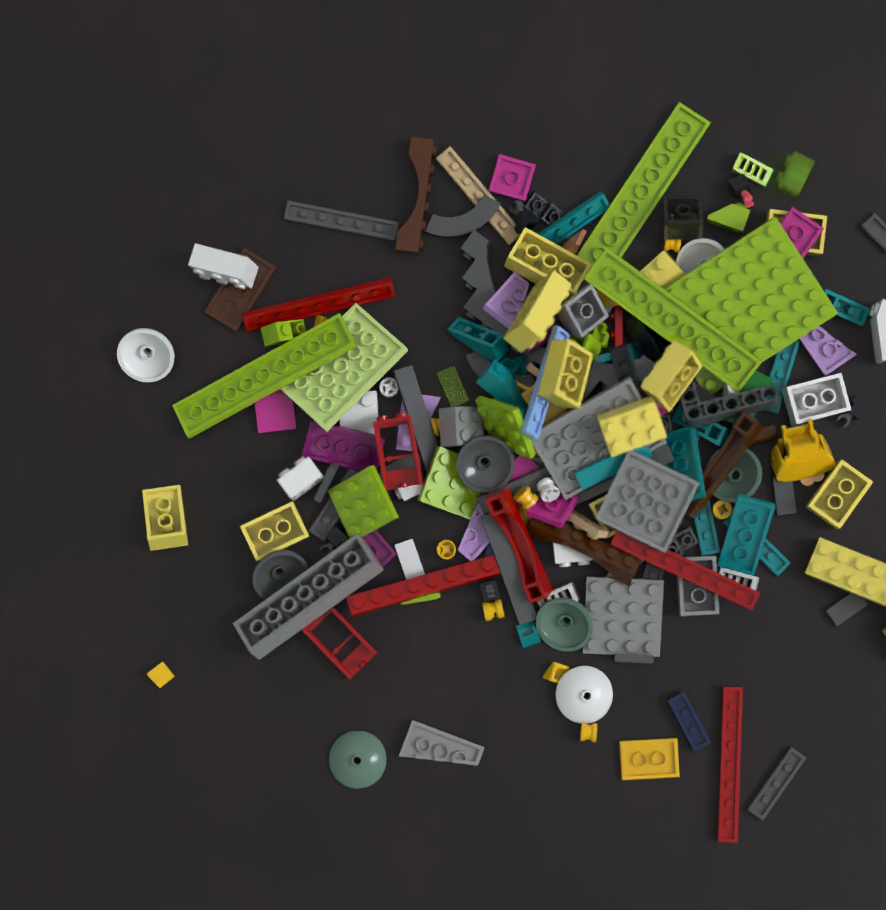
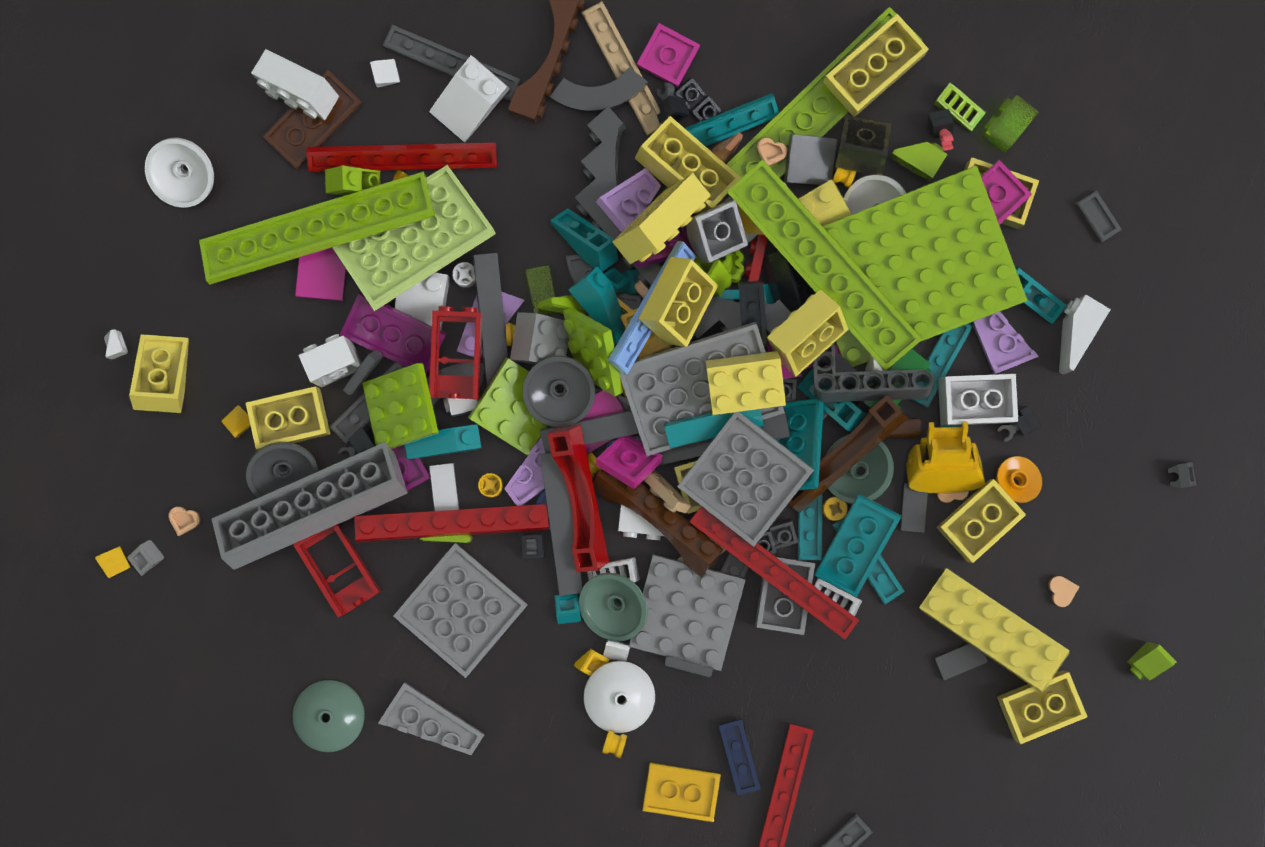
camera: 10 degrees right, 0 degrees up
(123, 502) = (115, 344): none -> white slope
(185, 665) = (145, 557): none -> light grey slope
(208, 630) = (183, 520): none -> light nougat tile
(234, 542) = (237, 421): none -> yellow slope
(290, 239) = (385, 72): none -> white slope
(361, 247) = (469, 98): none -> white slope
(406, 522) = (445, 442): none -> teal slope
(444, 653) = (460, 610): none -> light grey plate
(471, 394) = (559, 304): none -> lime slope
(493, 610) = (531, 570): yellow wheel -> none
(526, 497) = (599, 442): yellow wheel -> none
(548, 489) = (628, 439): white wheel -> none
(574, 658) = (616, 650): none -> white slope
(610, 238) = (770, 151): none -> light nougat tile
(642, 237) = (810, 159): none -> tile
(678, 152) = (875, 65): none -> light yellow brick
(867, 449) = (1027, 475): none -> light orange dish

